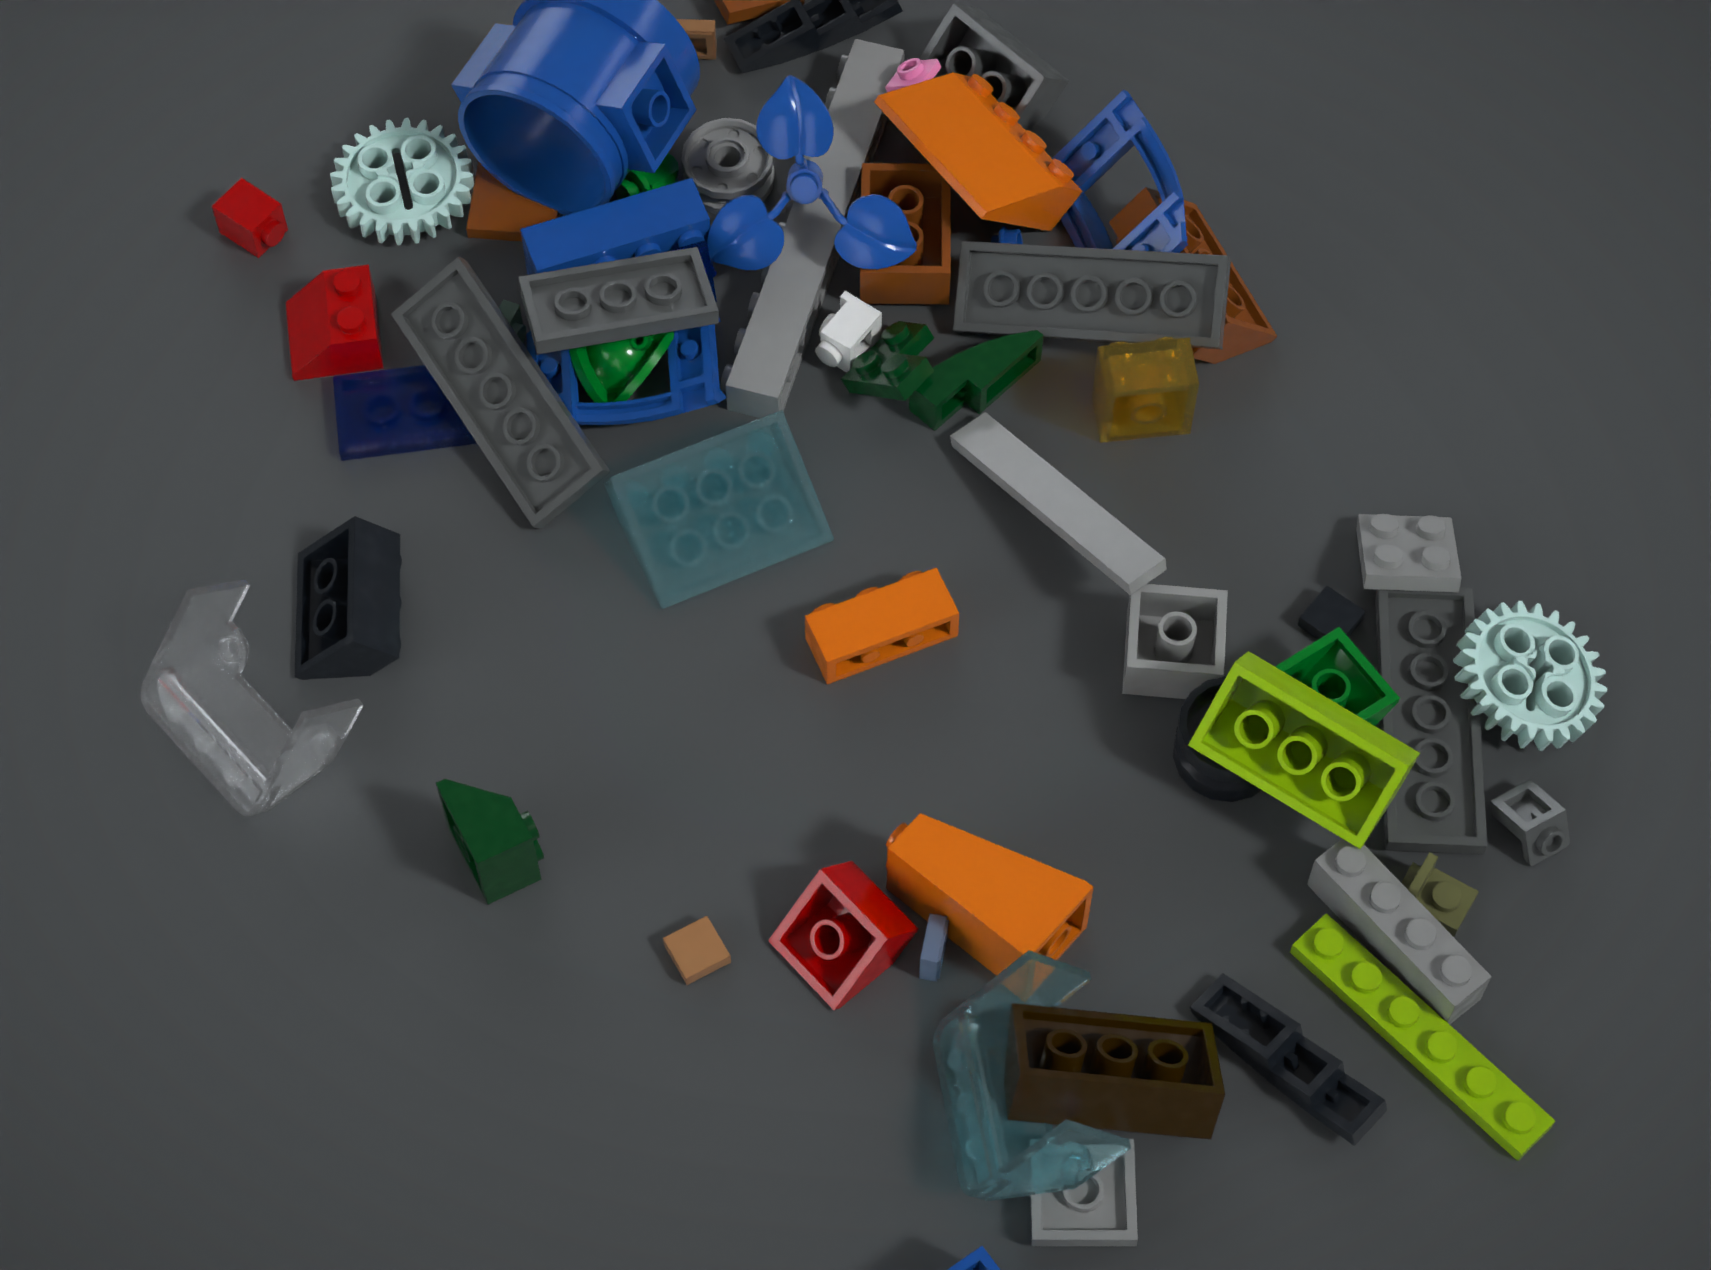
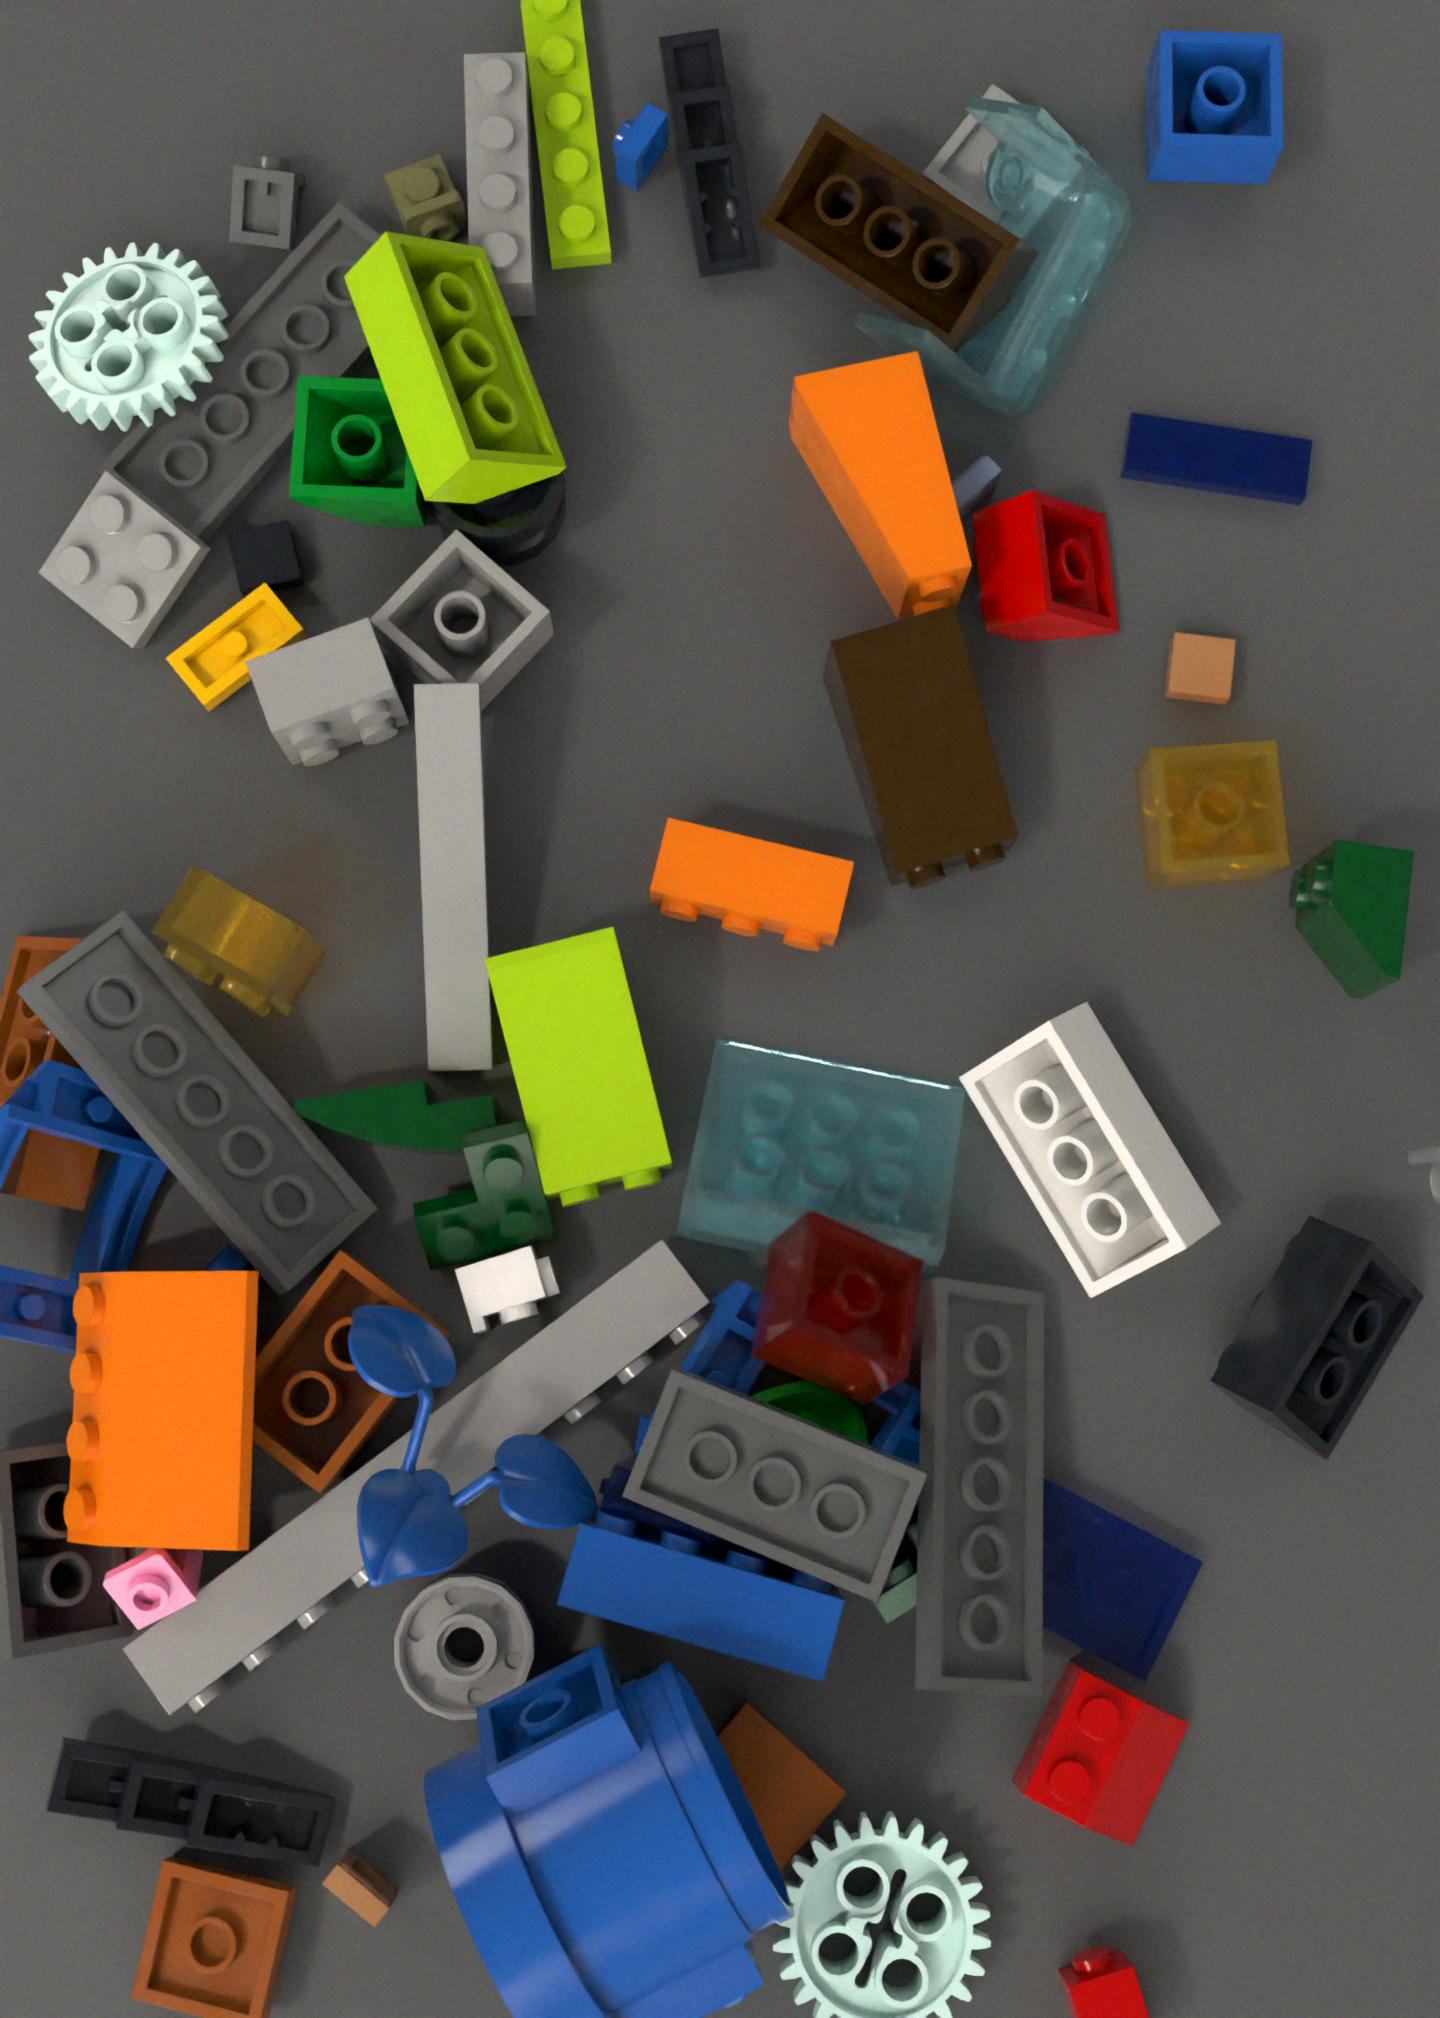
camera: 150 degrees left, 20 degrees up
(559, 617) = (1089, 1150): none -> white slope
(623, 842) = (1211, 814): none -> clear yellow brick
(648, 411) = (838, 1308): none -> clear red brick
(785, 1097) = (1216, 459): none -> clear blue tile
(840, 760) = (920, 747): none -> dark brown slope
(902, 461) = (580, 1066): none -> lime slope
(1218, 539) = (328, 693): none -> light grey brick
(1299, 554) = (216, 656): none -> yellow plate
(1335, 1023) = (640, 146): none -> blue plate

